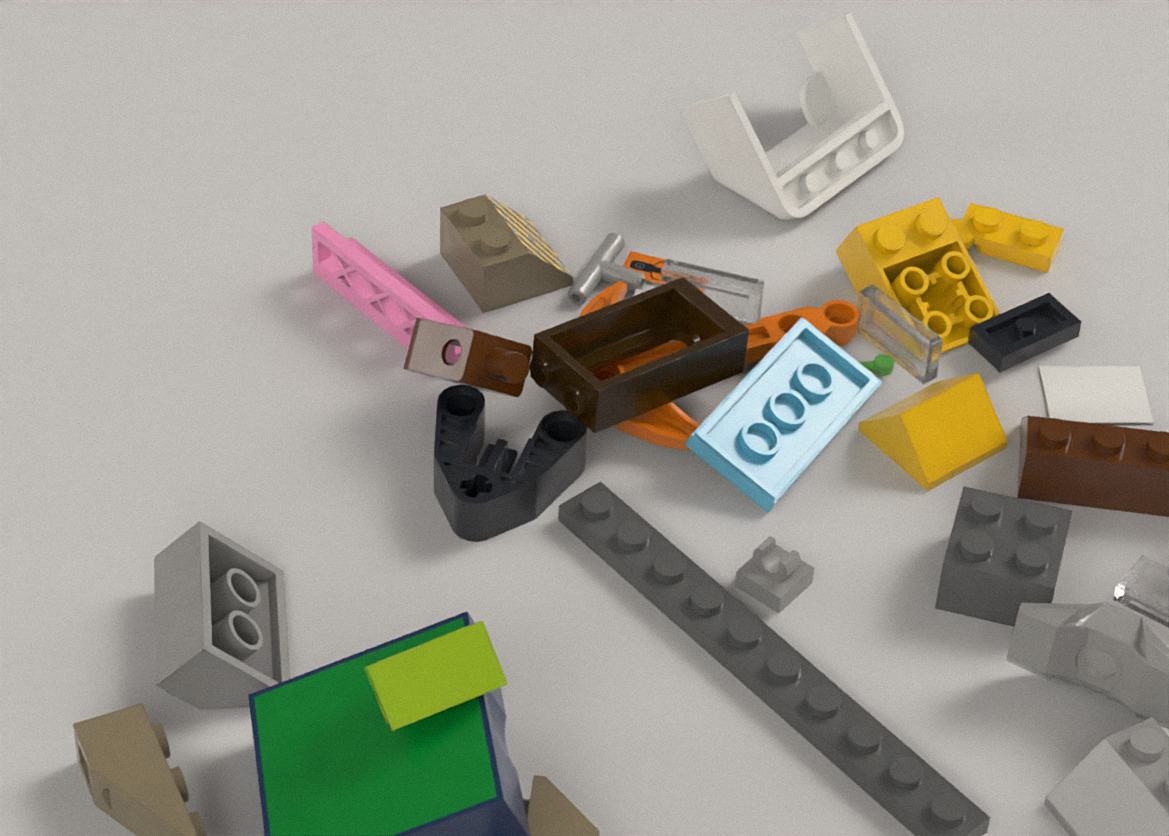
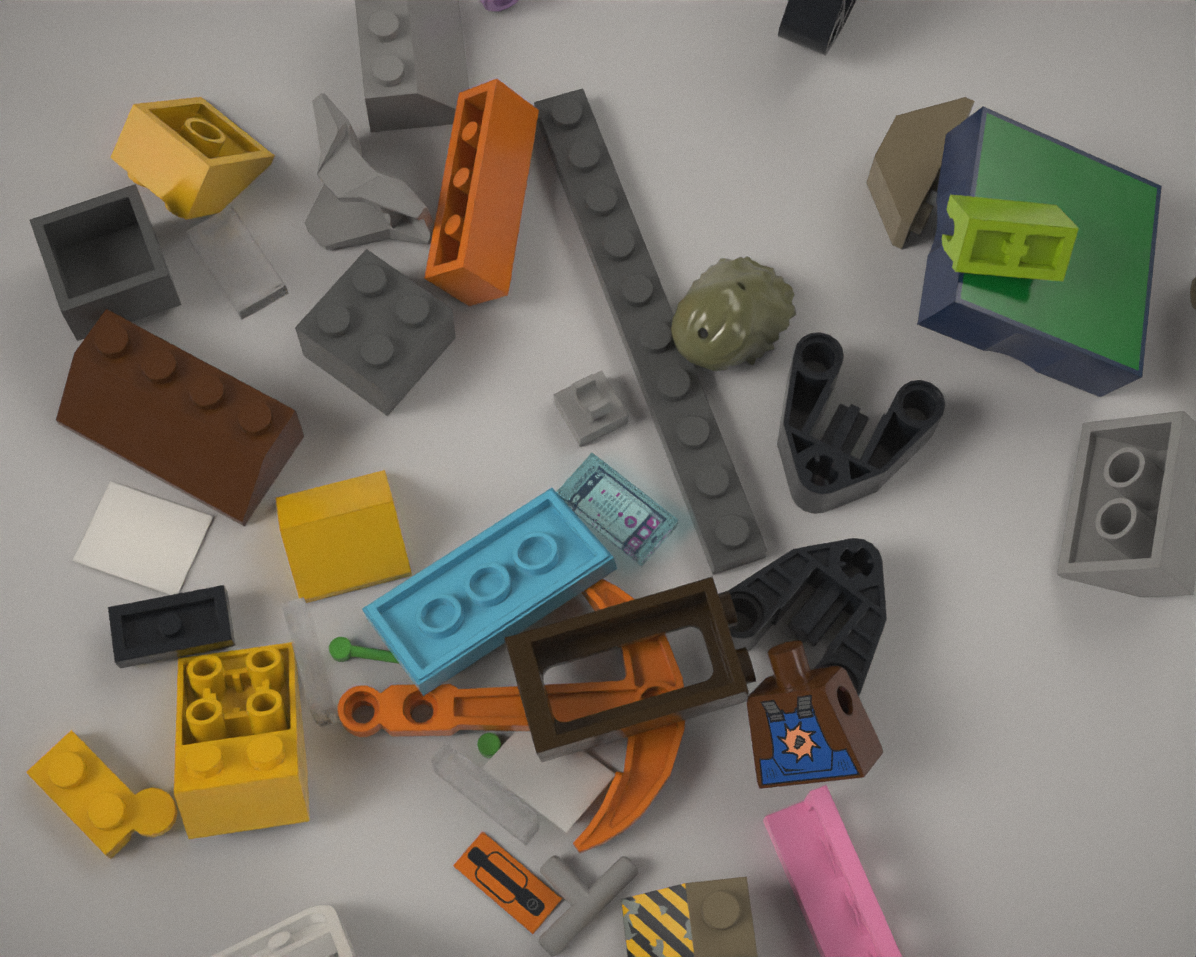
camera: 160 degrees left, 25 degrees up
(532, 571) = (845, 476): none -> black connector
(678, 688) = (740, 309): none -> olive piece
(708, 511) = (617, 509): none -> clear light blue tile
(983, 695) = (482, 194): none -> orange brick

